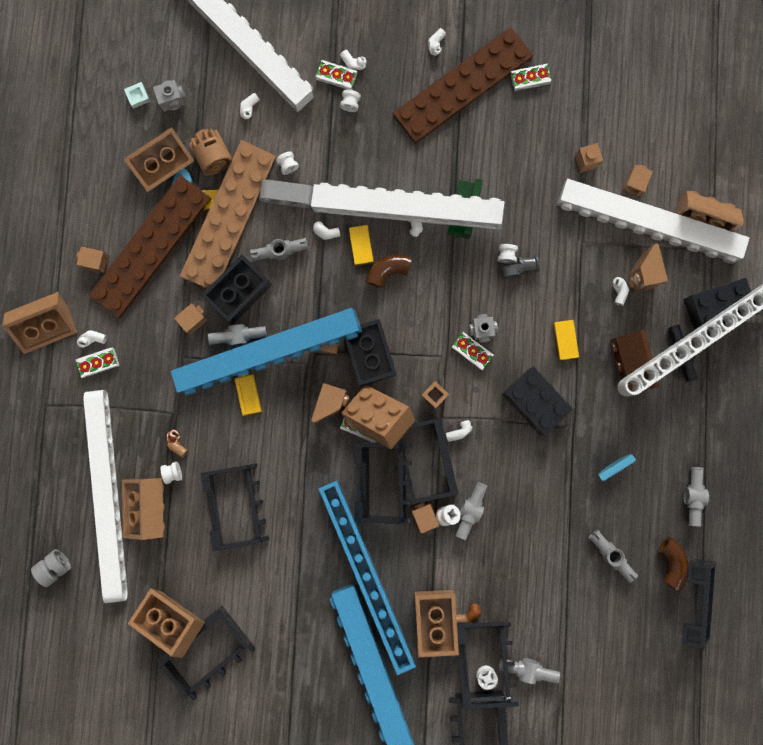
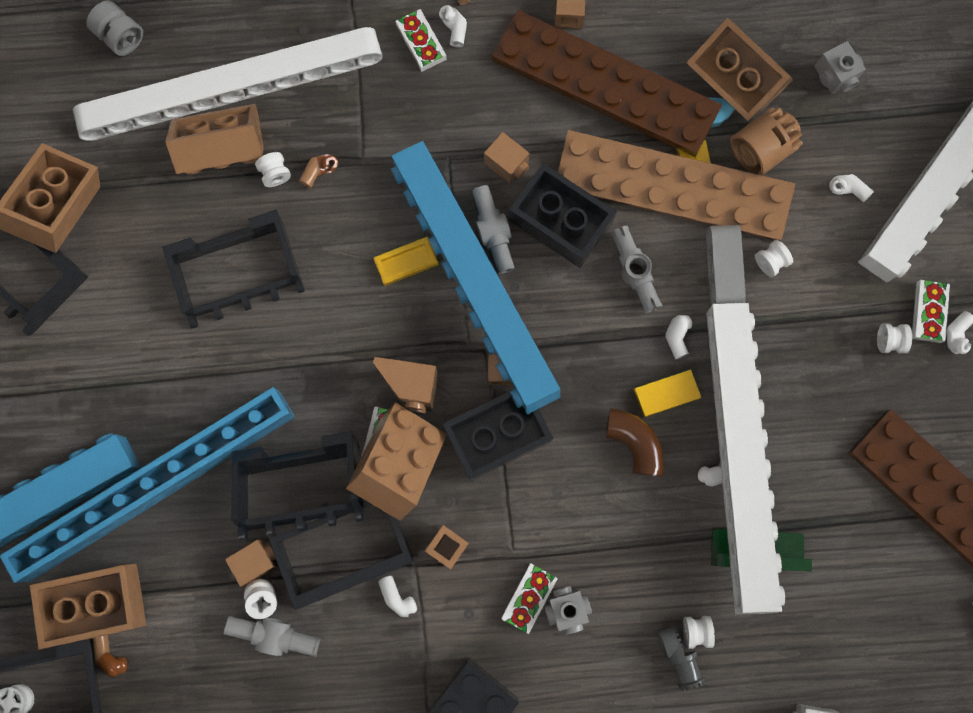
camera: 80 degrees right, 5 degrees down
(137, 95) = (830, 24): light aqua plate -> none

